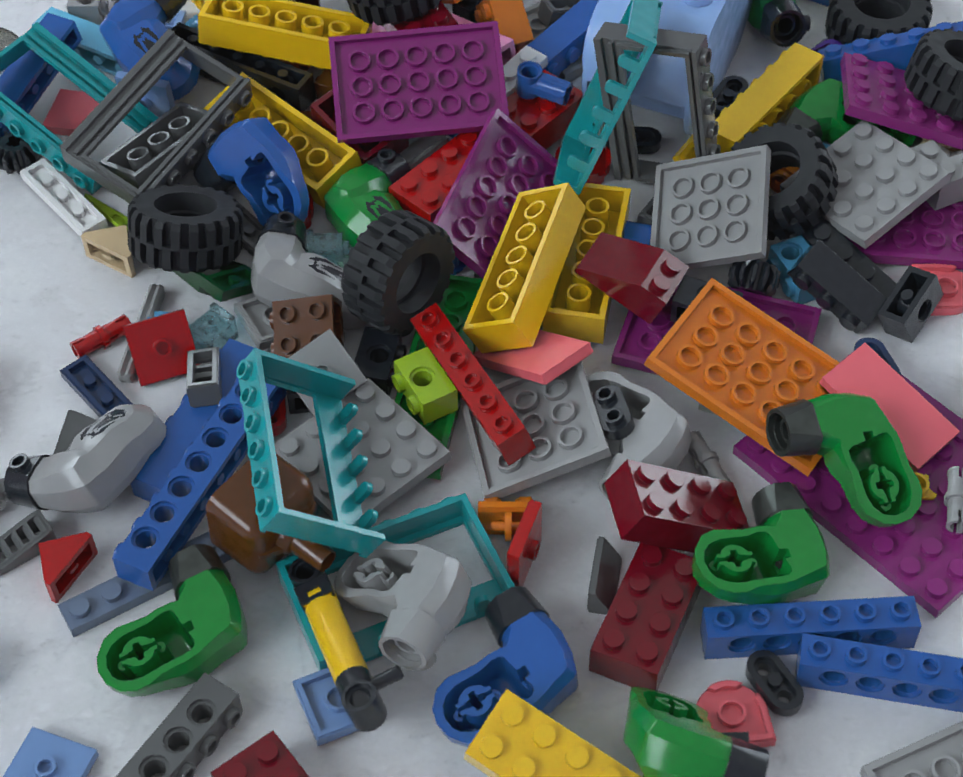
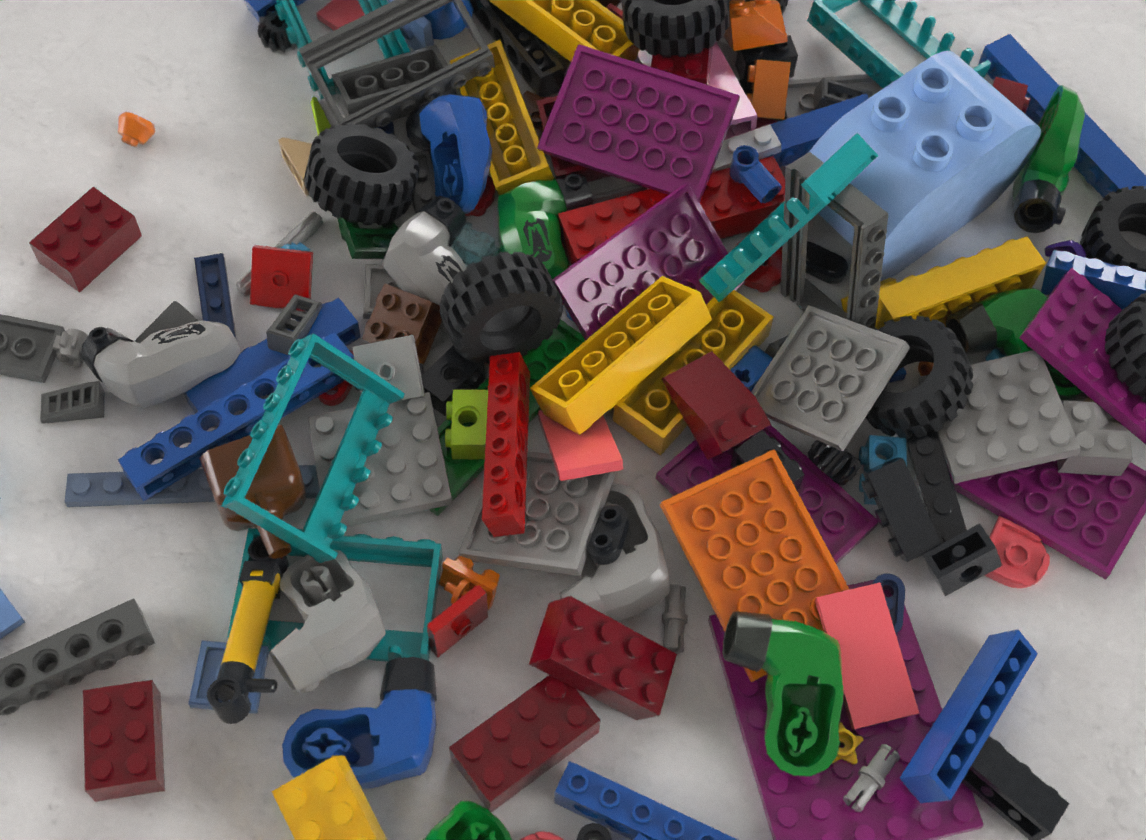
camera: 25 degrees right, 10 degrees up
(63, 197) = (292, 94): white plate -> none
(65, 561) = (92, 438): red slope -> none
(100, 337) = (244, 241): red pin -> none
(182, 637) = (134, 557): green piece -> none
(214, 328) = (335, 281): clear light blue brick -> none
(604, 577) = (512, 681): dark grey slope -> none
(728, 91) = (937, 254): black plate -> none
(767, 562) = (653, 750): green piece -> none

